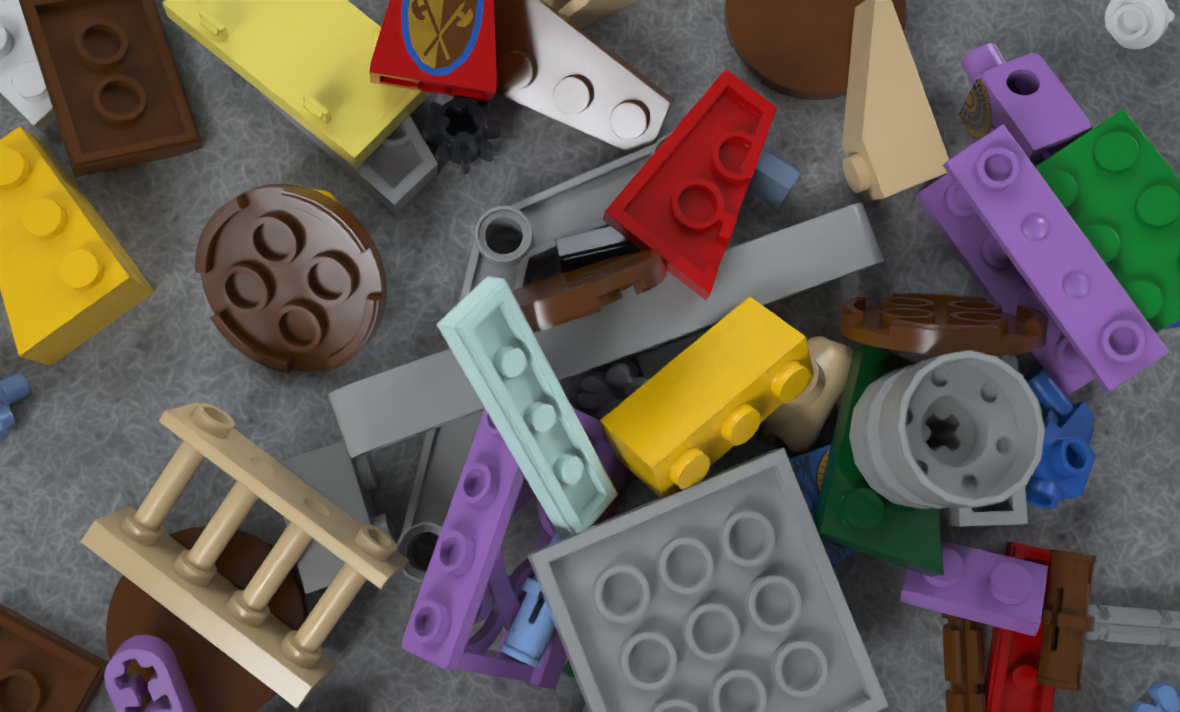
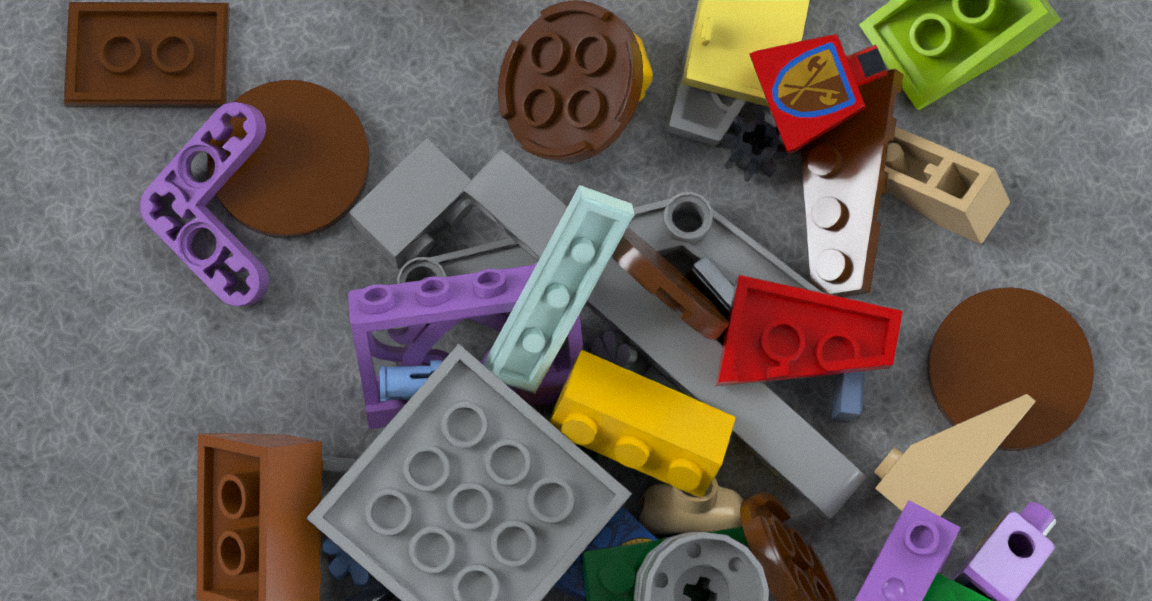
camera: 65 degrees right, 5 degrees down
(189, 581) = (318, 125): tan fence -> none

